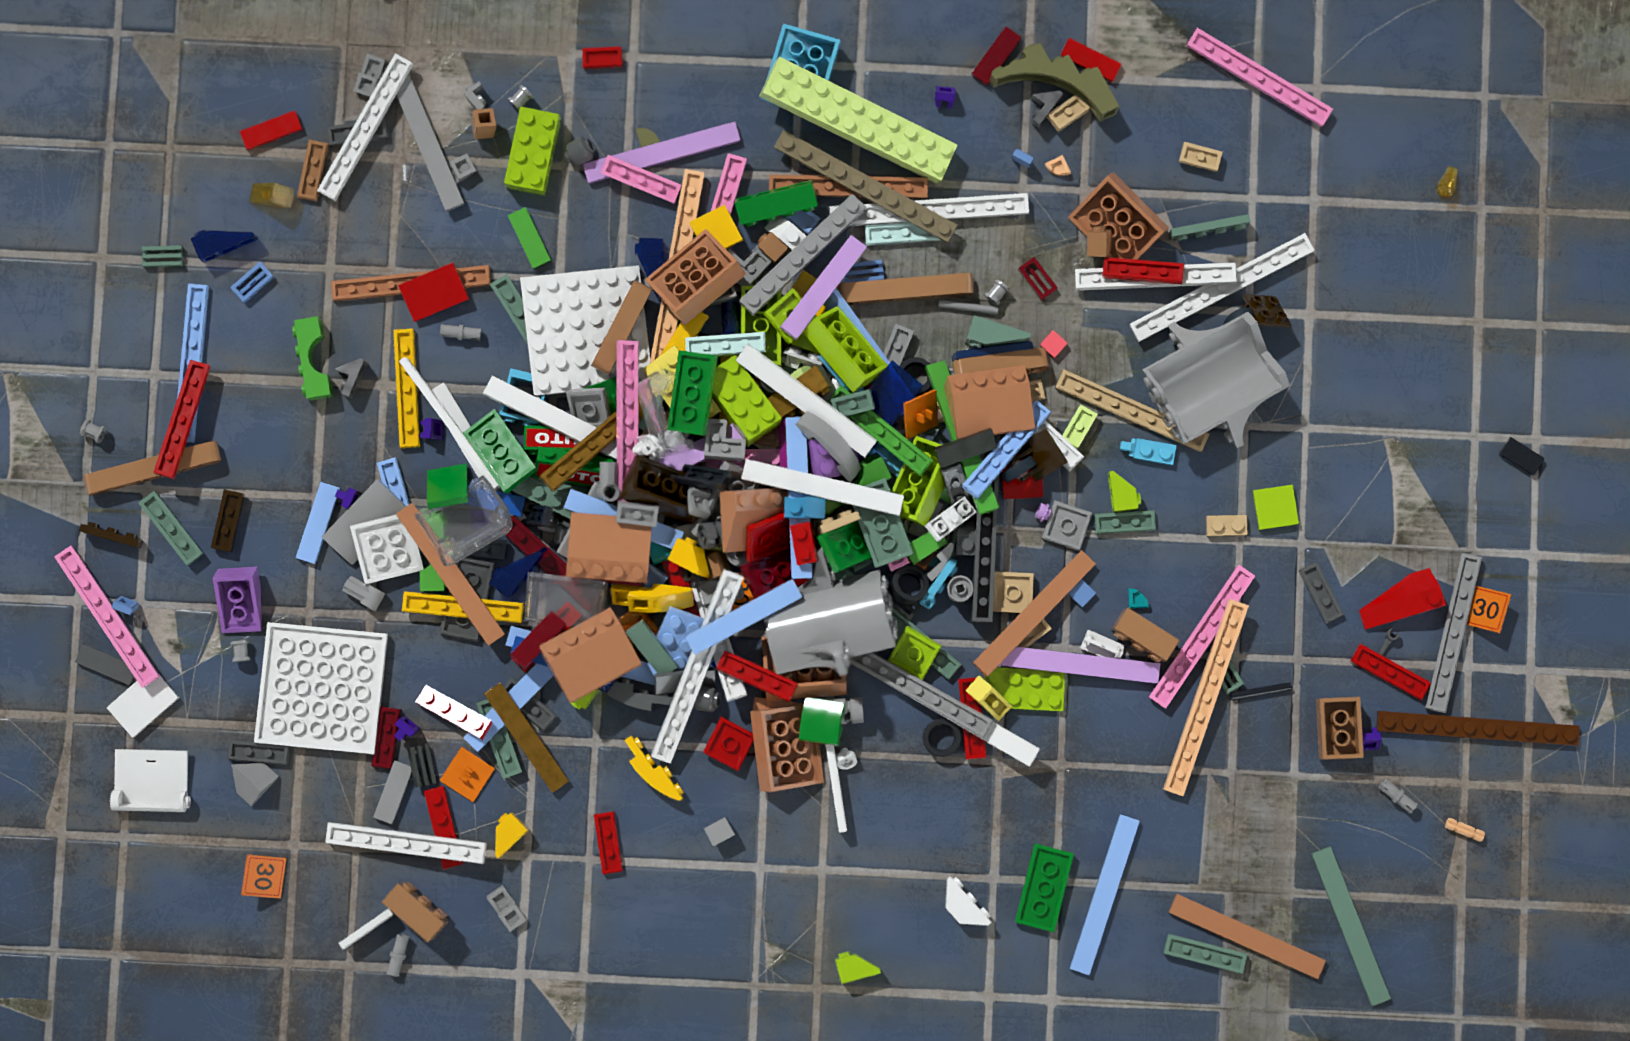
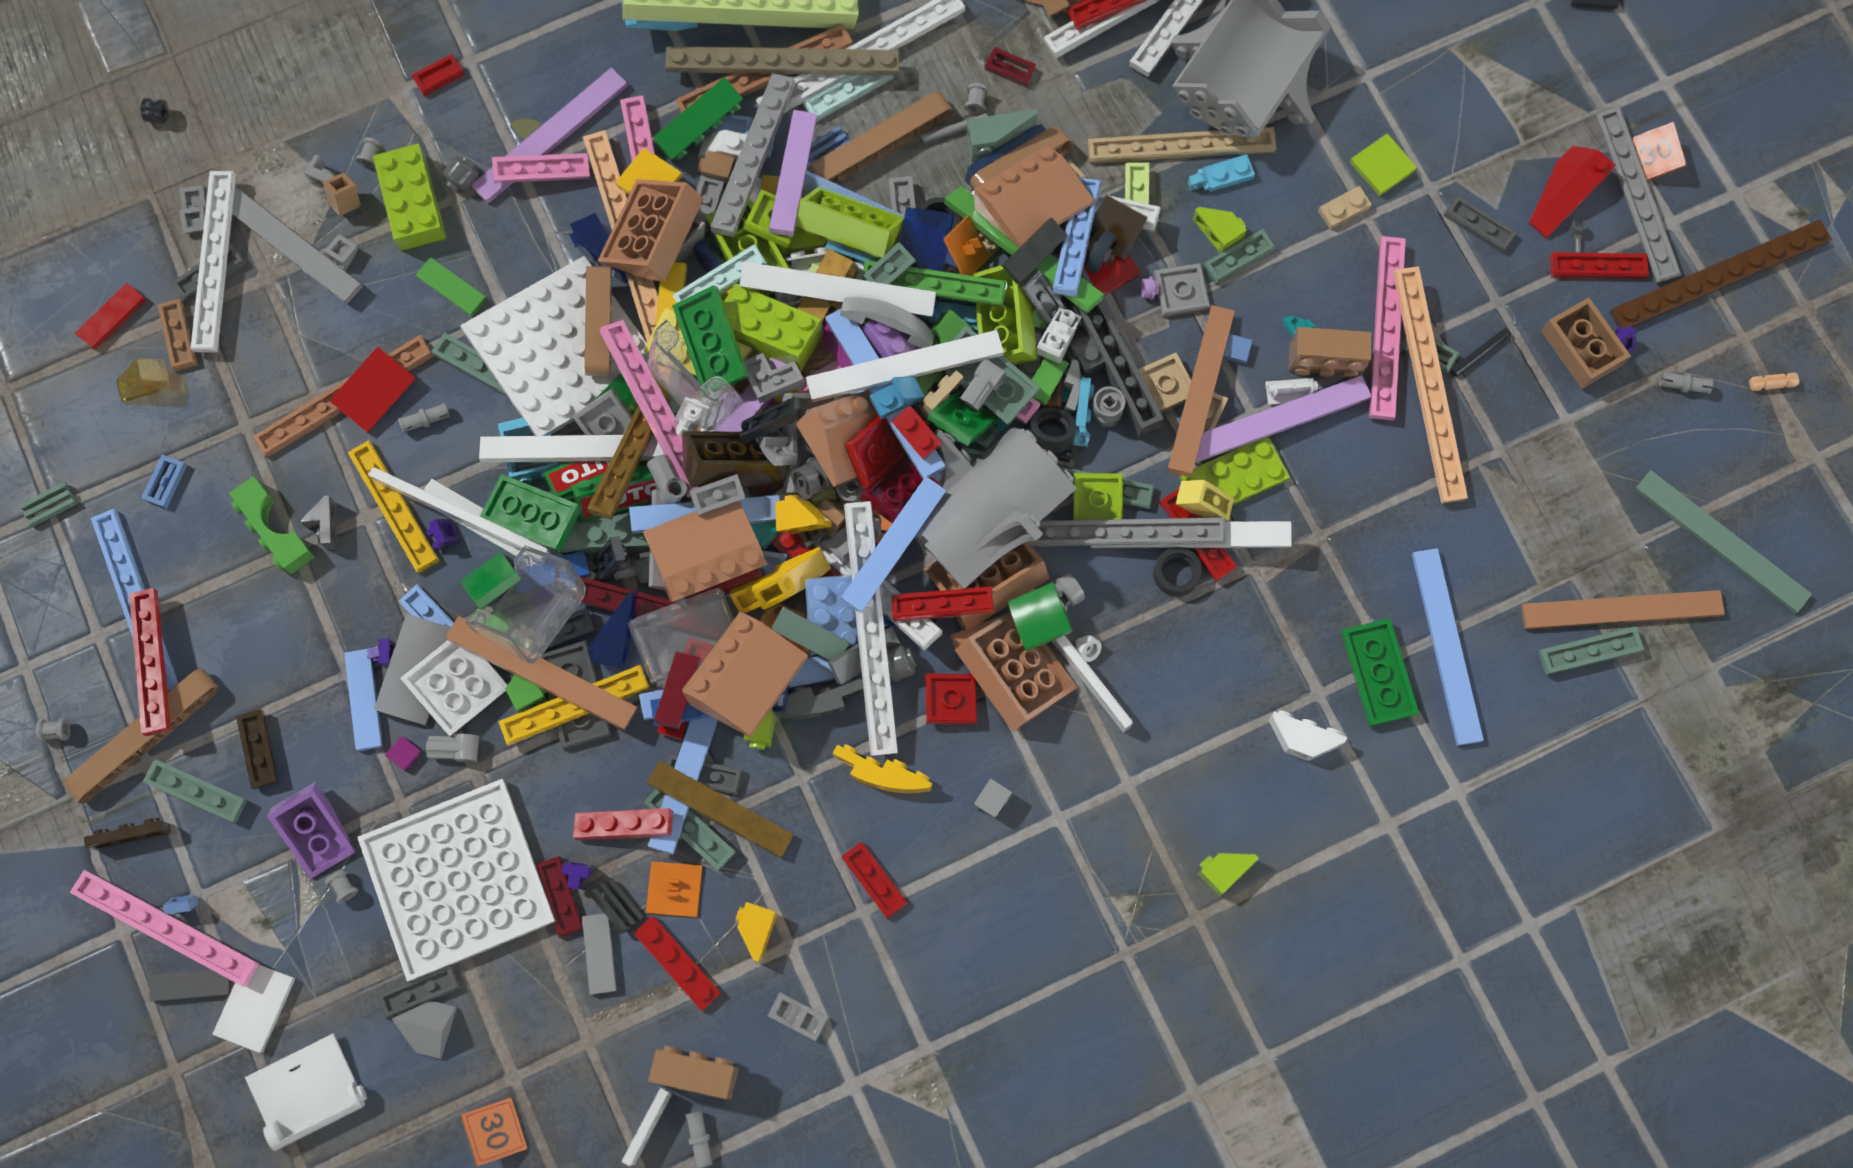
camera: 30 degrees left, 10 degrees down
(217, 243) = (103, 459): clear blue slope -> none
(327, 577) = (403, 753): none -> magenta tile
(406, 842) = (642, 1001): white plate -> none
(875, 529) = (986, 378): none -> light grey piece
(1053, 344) = (1064, 120): coral tile -> none

